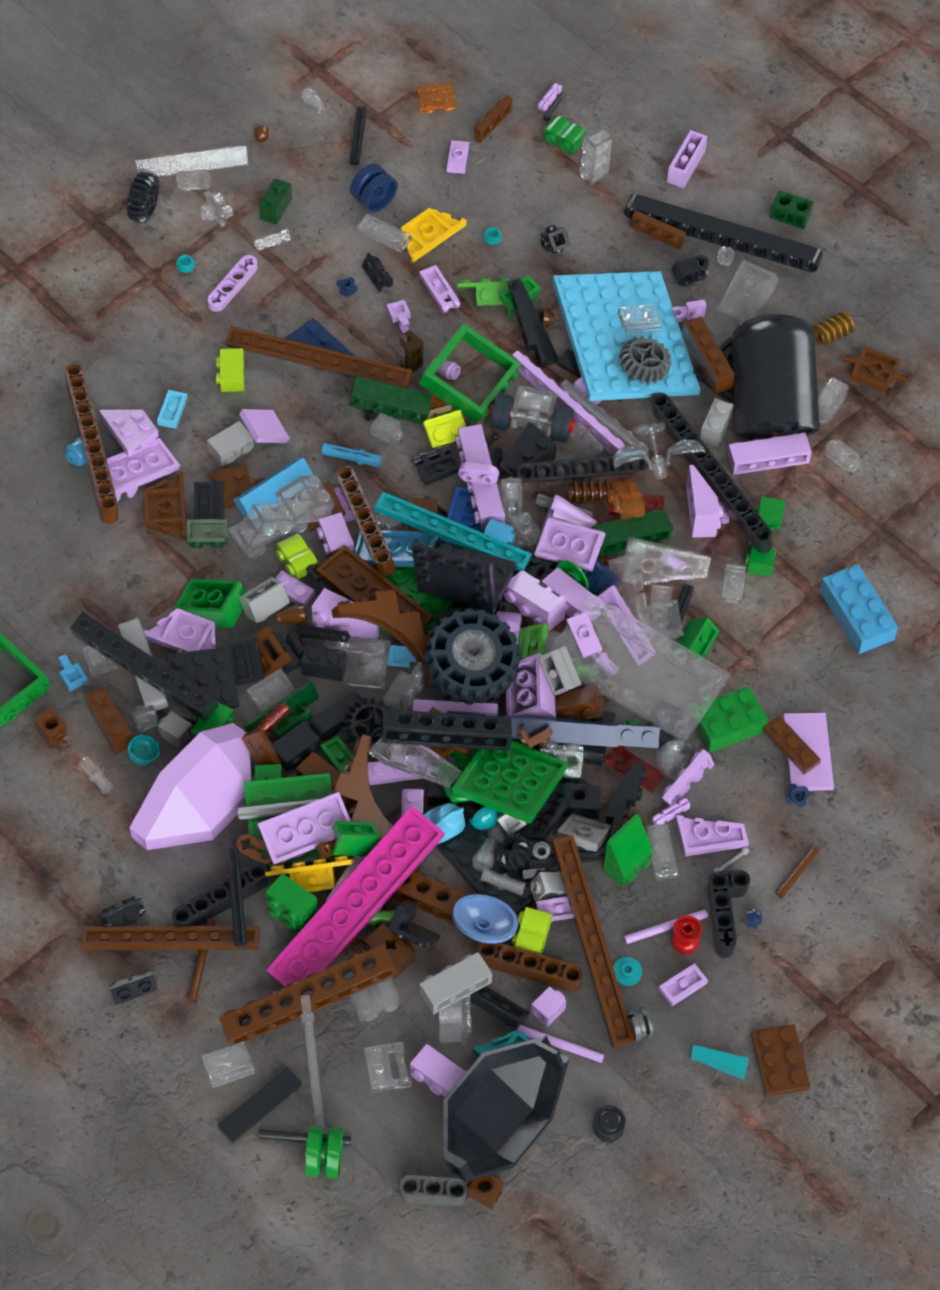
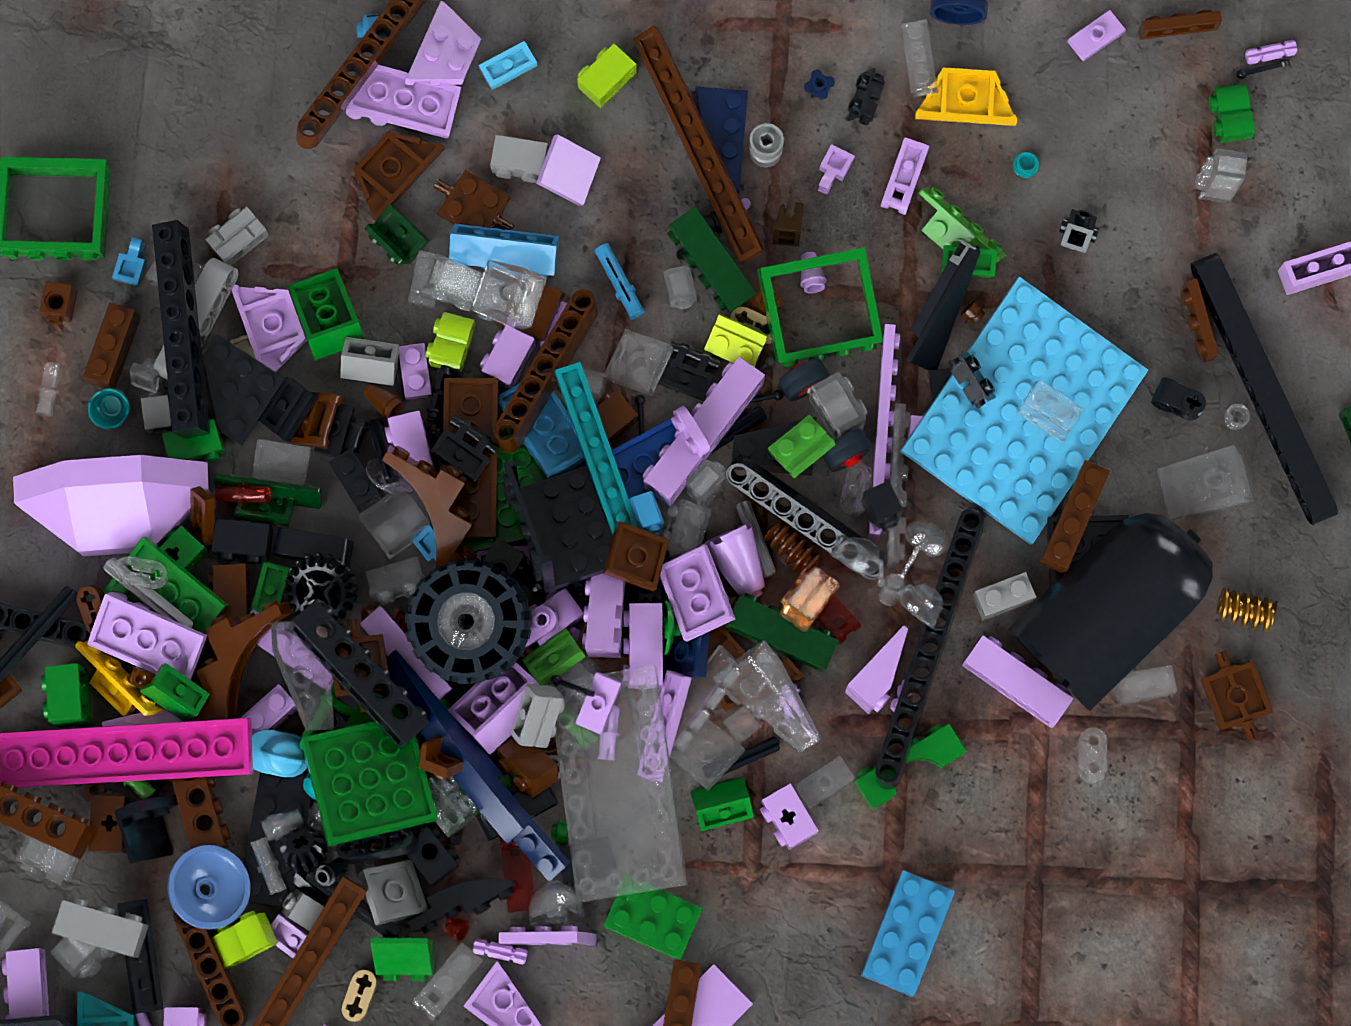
camera: 50 degrees right, 20 degrees up
(117, 607) = (236, 236): none -> light grey brick
(208, 500) = (431, 203): black plate -> none
(265, 796) = (140, 578): none -> clear beam
(354, 330) = (766, 145): none -> light grey wheel
(364, 584) = (455, 451): none -> black plate
(407, 479) = (638, 362): none -> clear plate
(520, 553) = (636, 556): none -> reddish brown tile
(540, 434) = (801, 446): none -> bright green plate
(547, 649) = (556, 680): none -> black hinge
(595, 334) = (979, 386): none -> black hinge
(614, 424) = (882, 506): none -> black brick
(629, 901) = (366, 997): none -> tan beam
(645, 360) = (1003, 472): dark grey gear -> none
(690, 311) = (1127, 448): lavender plate -> none
(736, 612) = (788, 801): none -> lavender brick

